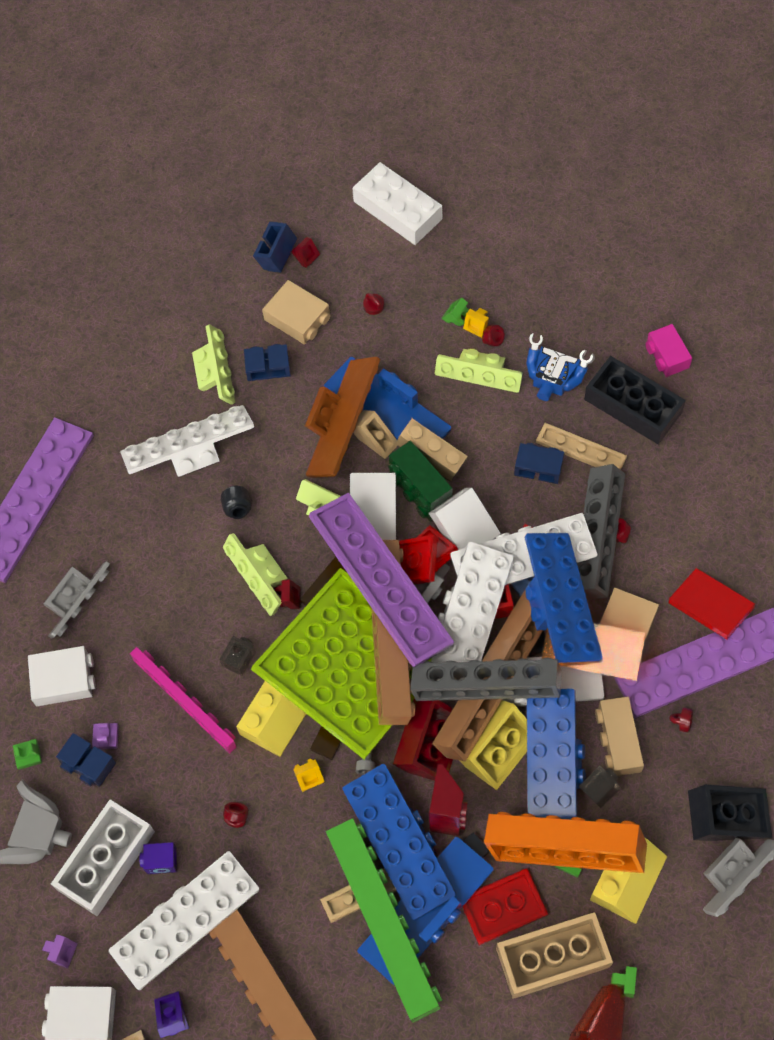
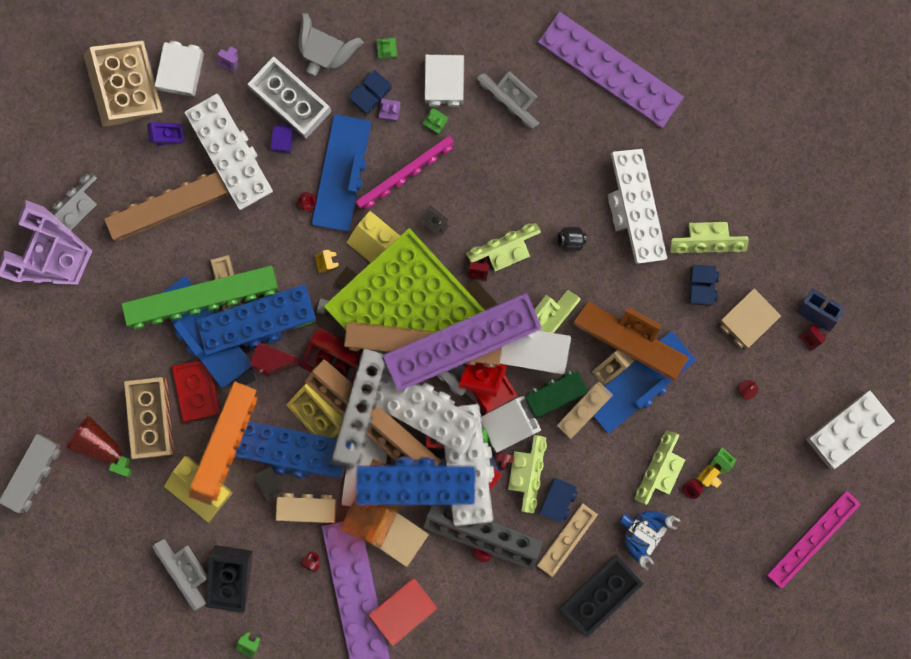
camera: 100 degrees right, 20 degrees up
(113, 679) = (435, 121): none -> bright green tile
(193, 776) = (342, 173): none -> blue bracket
(504, 525) = (503, 458): none -> dark red tile
(517, 503) = (526, 473): none -> yellowish green bracket
(520, 219) = (813, 539): none -> dark pink plate
(668, 350) = (646, 639): dark pink brick -> none

